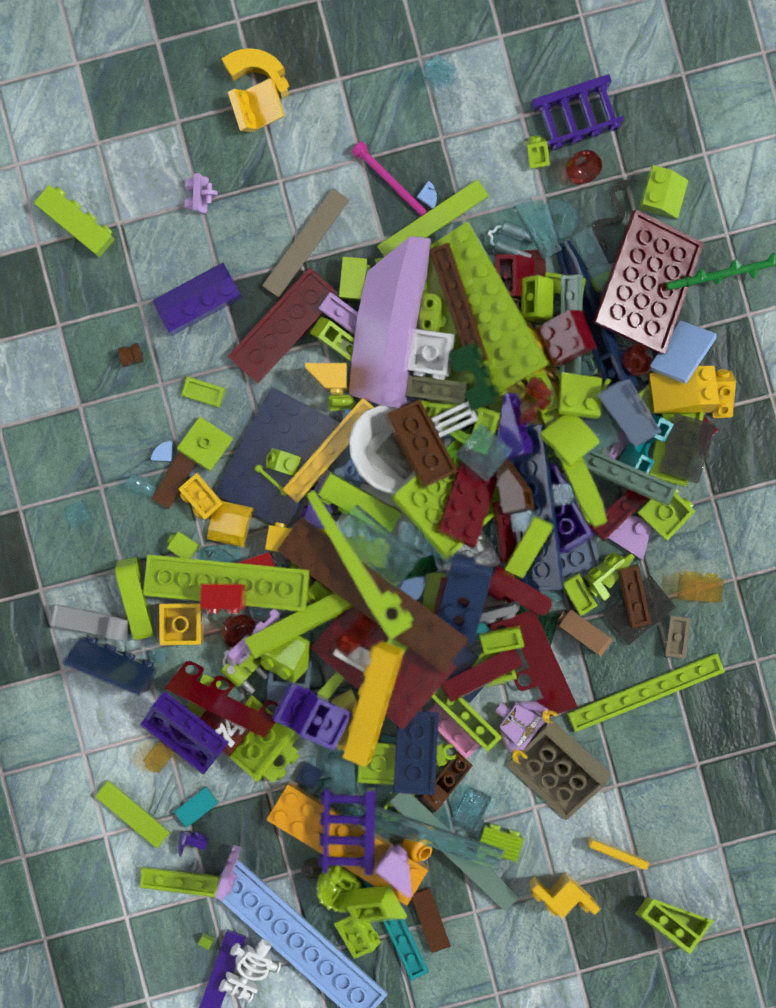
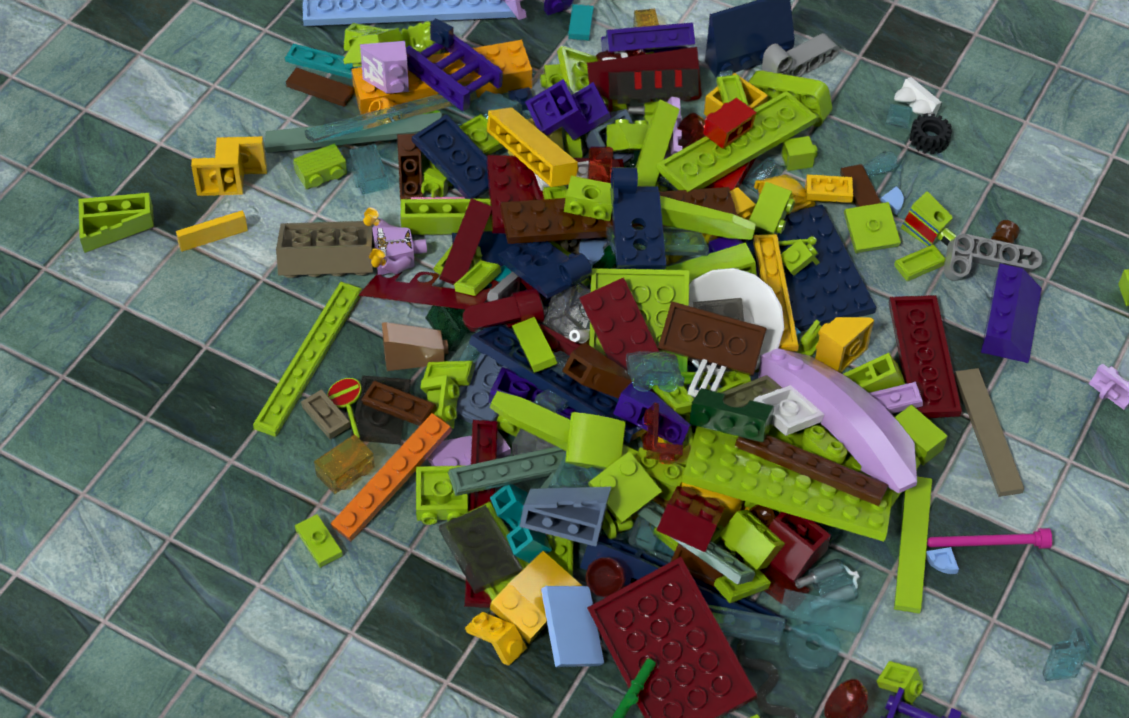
camera: 130 degrees right, 35 degrees down
(52, 517) = (918, 98): none -> white tile
(65, 477) = (934, 125): none -> black tyre
(144, 327) = (993, 258): none -> light grey beam
(169, 408) = (928, 221): none -> lime torso
(184, 626) = (730, 88): none -> lime tile
(225, 687) = (653, 84): none -> clear smoke brick
(266, 509) = (771, 209): none -> lime brick
(334, 863) = (441, 33): none -> dark blue plate
(379, 577) = (636, 205): none -> dark blue hinge
(492, 527) = (580, 336): none -> white arm
(651, 641) = (345, 393): none -> piece
(684, 550) = (391, 477): none -> orange plate
(759, 552) = (318, 540): none -> lime plate

